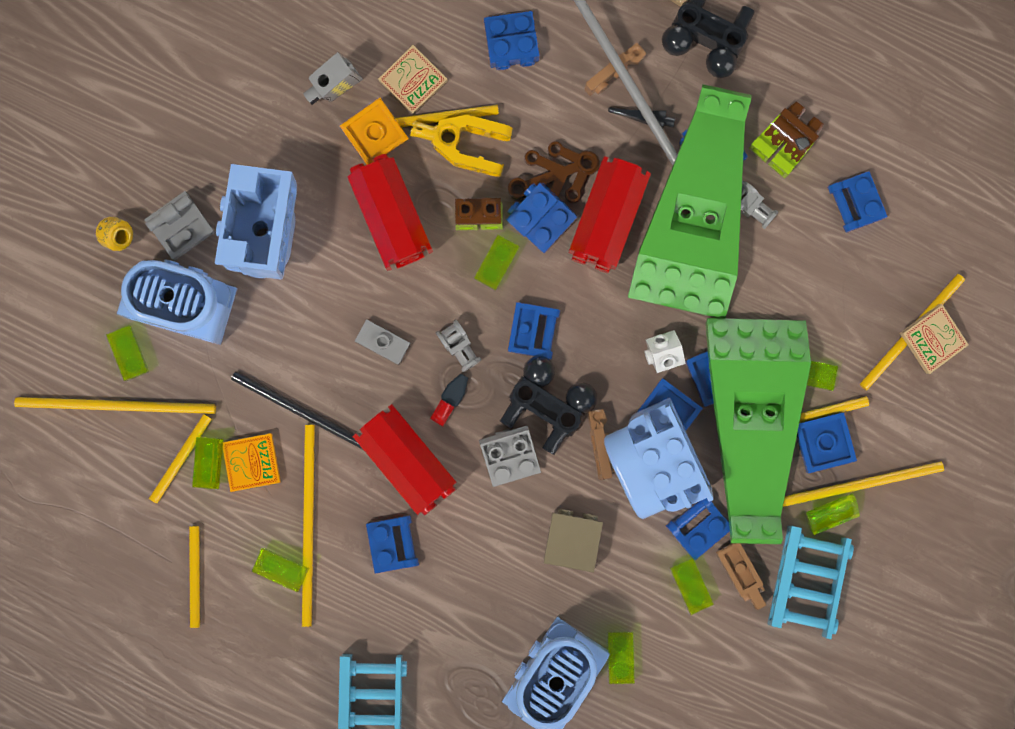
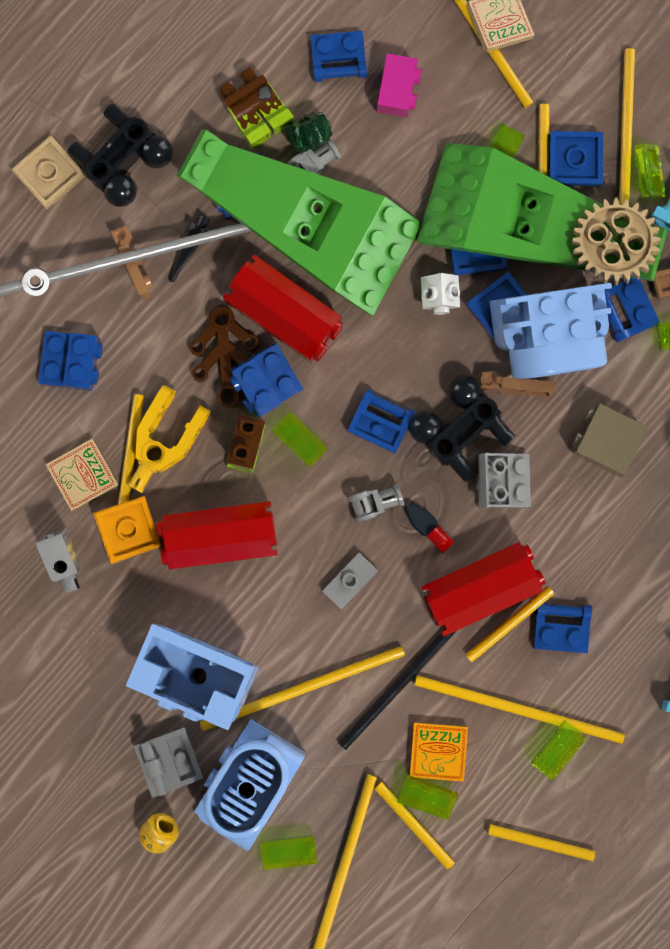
camera: 80 degrees left, 0 degrees up
(285, 339) = (315, 683): none -> yellow piece
(382, 495) = (509, 624): none -> yellow bar
(772, 514) = (638, 231): none -> tan gear
(778, 192) = (309, 131): none -> clear green gear
(845, 261) = (397, 85): none -> dark pink brick

